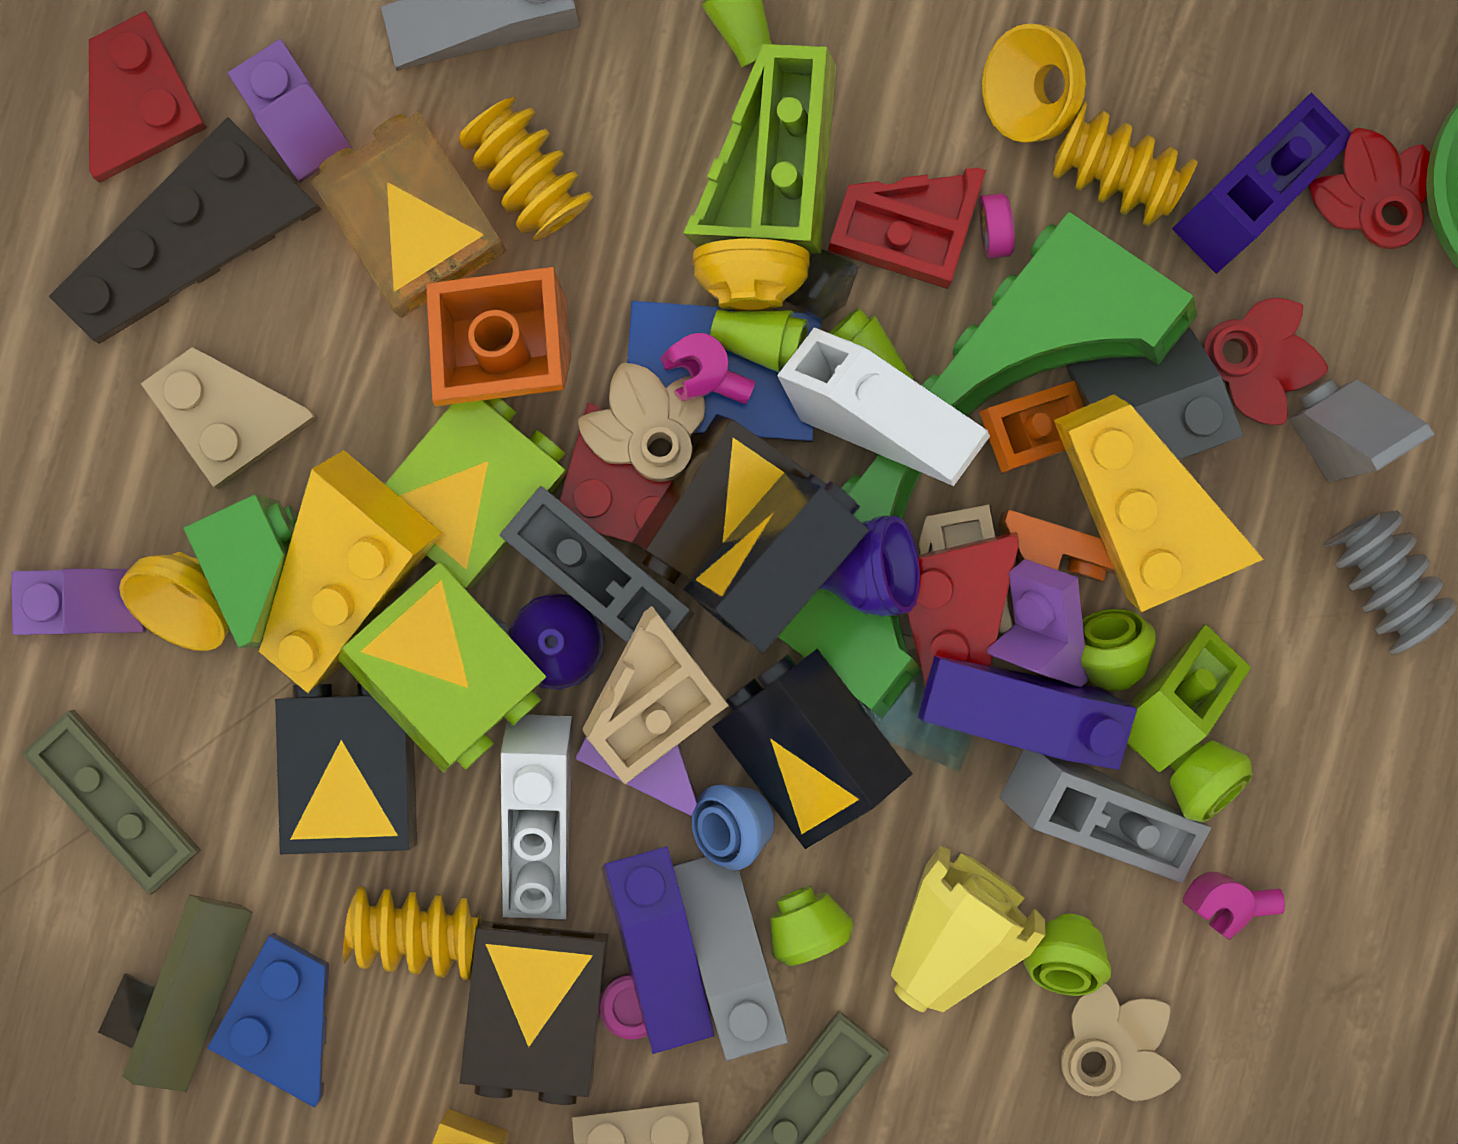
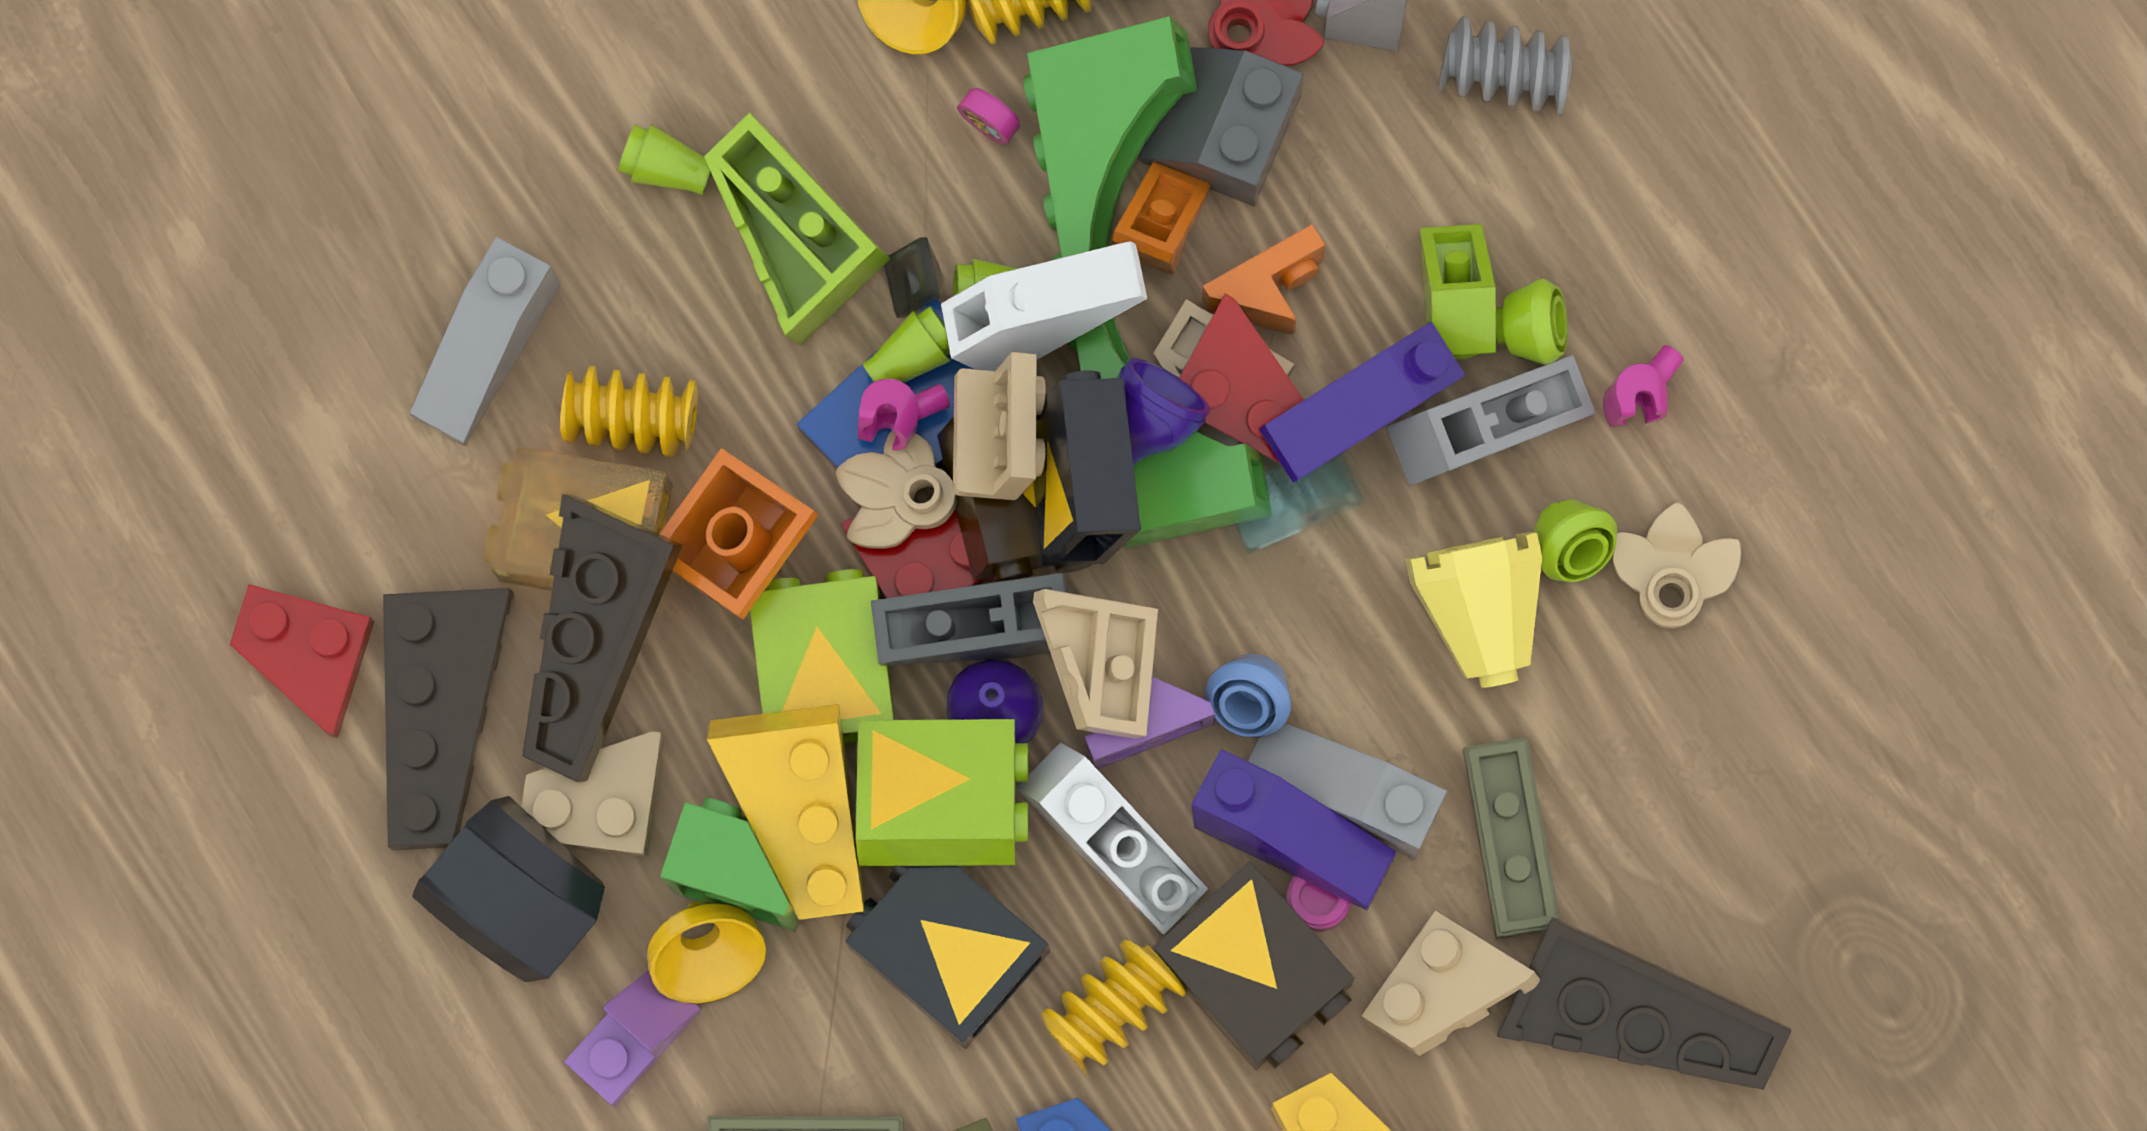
camera: 40 degrees left, 10 degrees down
(96, 419) = (512, 891): none -> black slope
(288, 109) = (421, 546): medium lavender slope -> none
(345, 295) = (599, 613): none -> dark brown wing
(750, 272) = (857, 314): yellow piece -> none
(750, 464) = (996, 429): none -> tan bracket
(808, 926) = (1376, 708): lime cone -> none
(810, 747) = (1243, 581): black brick -> none
(909, 224) = (929, 177): red wing -> none
(1047, 624) = (1312, 332): medium lavender slope -> none
(1116, 648) = (1375, 306): lime cone -> none
(1148, 507) = (1288, 178): yellow wedge -> none

